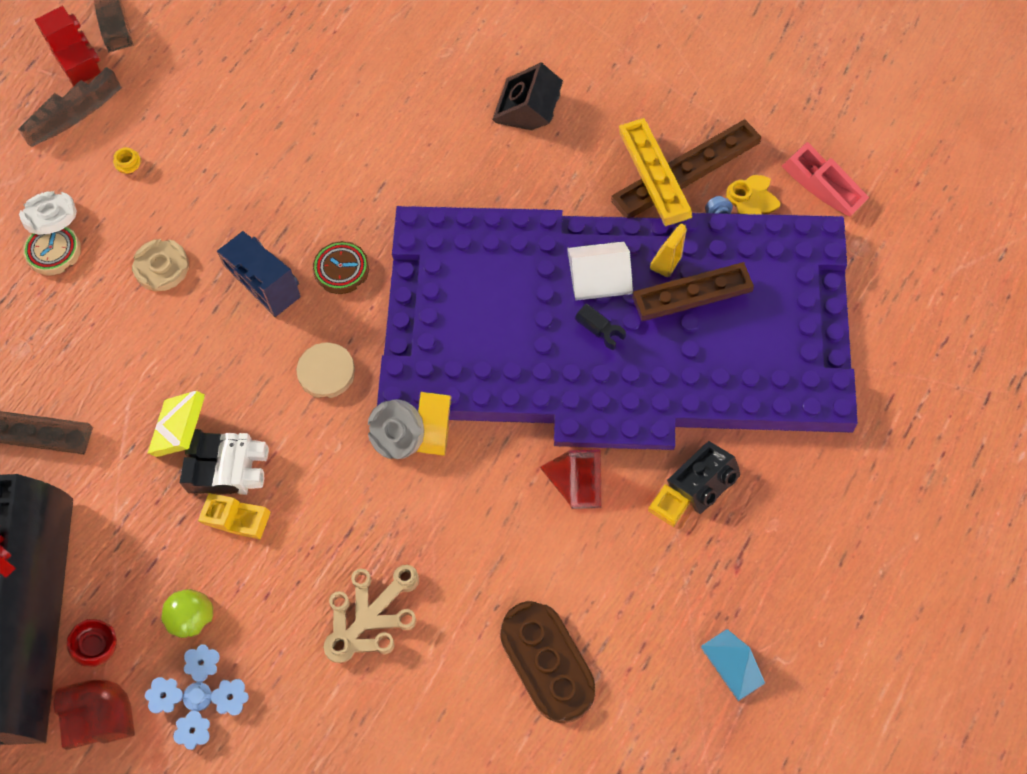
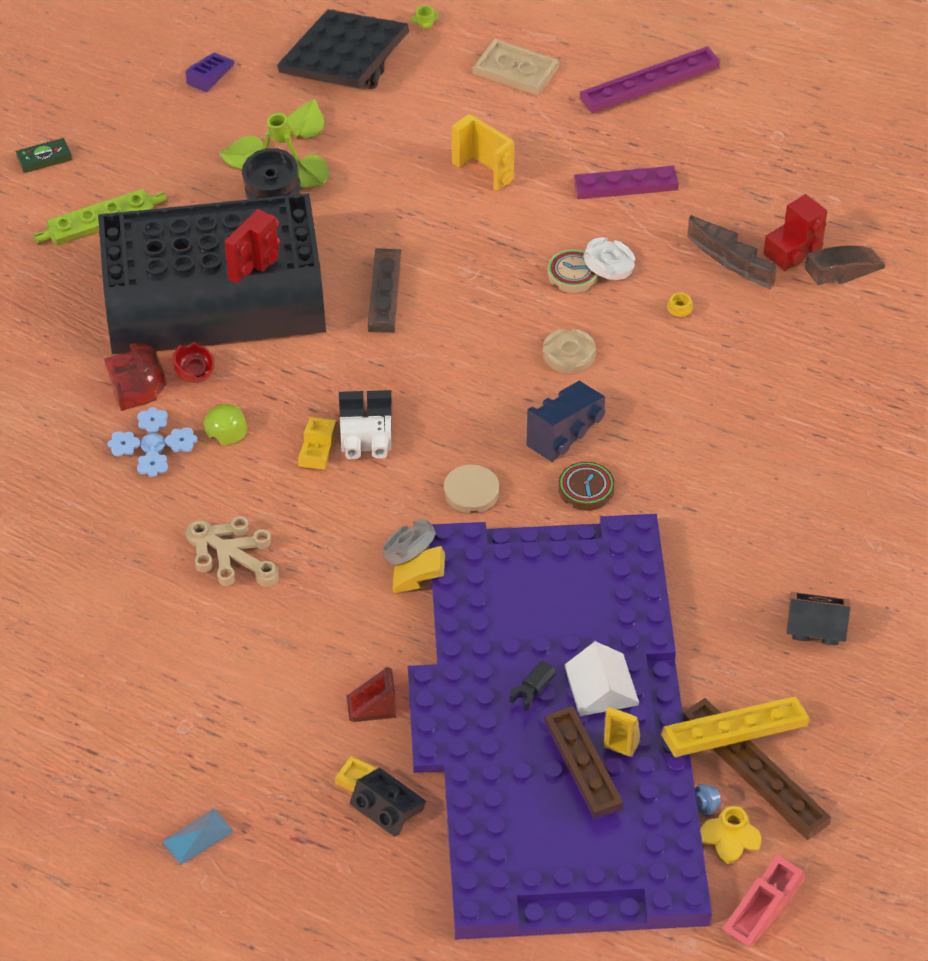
camera: 80 degrees right, 15 degrees down
(176, 424) = (399, 383): neon yellow tile -> none
(547, 662) = (194, 688): reddish brown tile -> none

